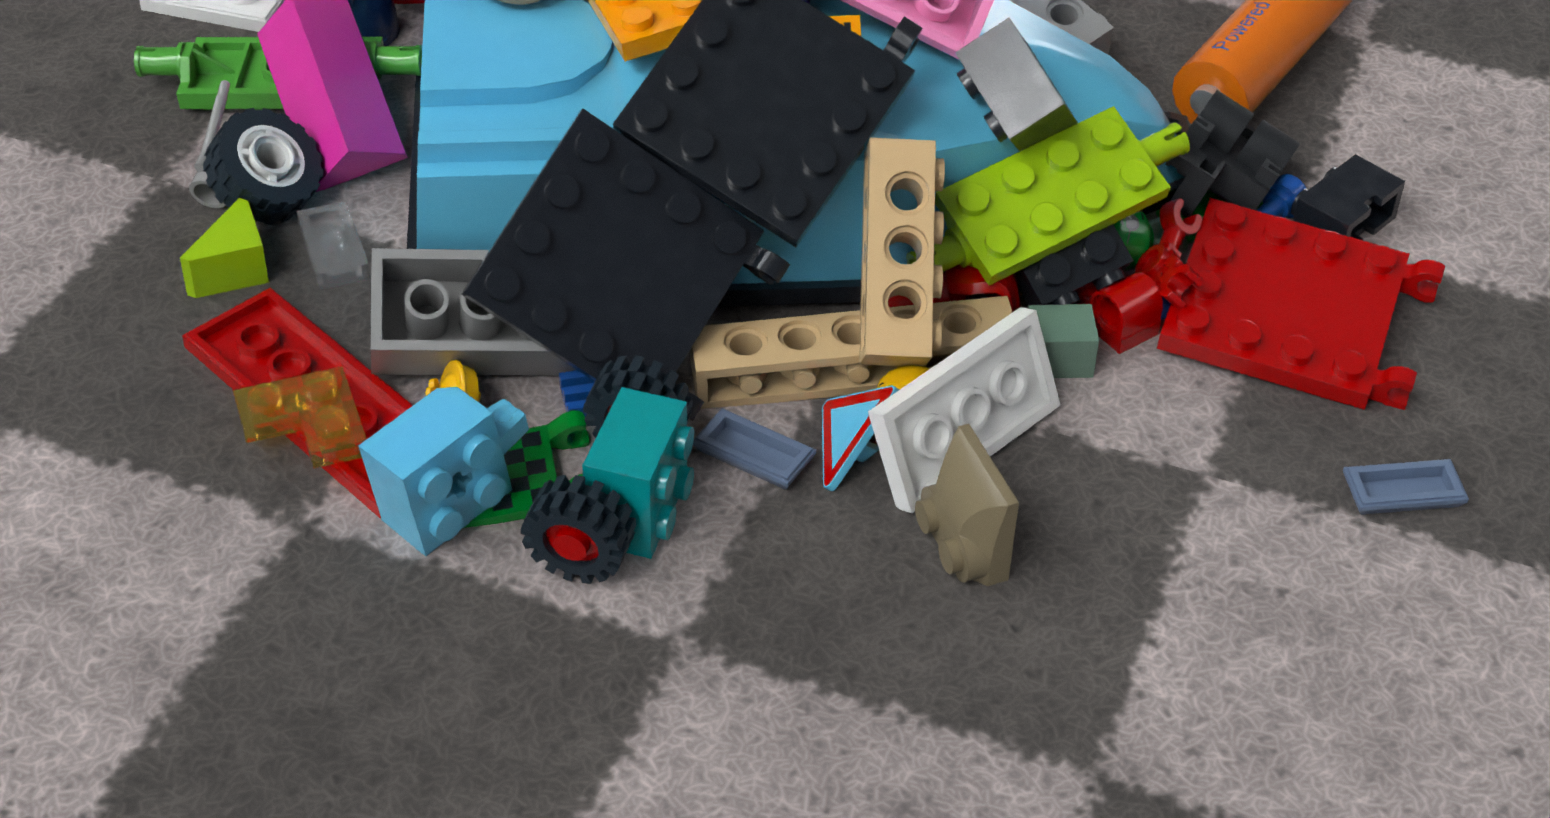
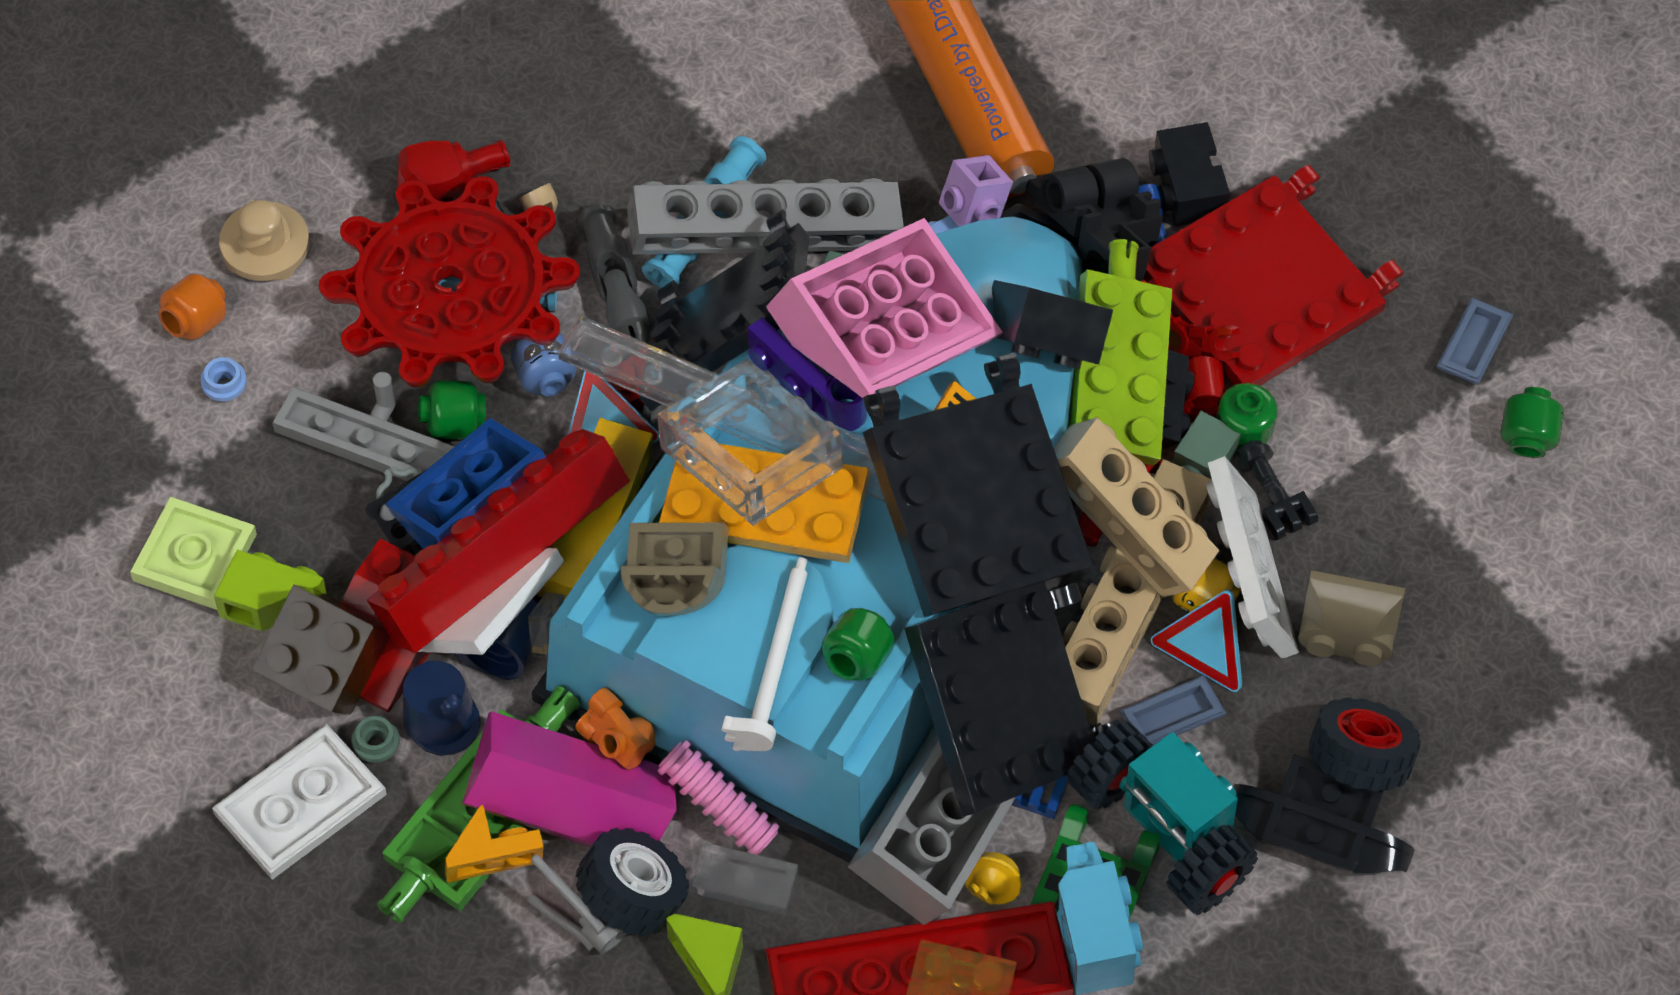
camera: 55 degrees left, 15 degrees up
(230, 59) = (480, 855): none -> light orange slope
(390, 182) = (718, 798): none -> bright pink piece
(392, 85) = (614, 732): none -> orange plate
(396, 79) = (755, 732): none -> white piece
(540, 96) = (857, 644): none -> green head
(726, 611) = (1322, 821): none -> black plate
(831, 587) = (1364, 744): none -> black wheel
(1092, 381) = (1255, 457): none -> black hinge
(1126, 350) = (1248, 411): none -> green head
(1153, 57) = (975, 190): none -> lavender brick
(1356, 563) = (1532, 422): none -> green head

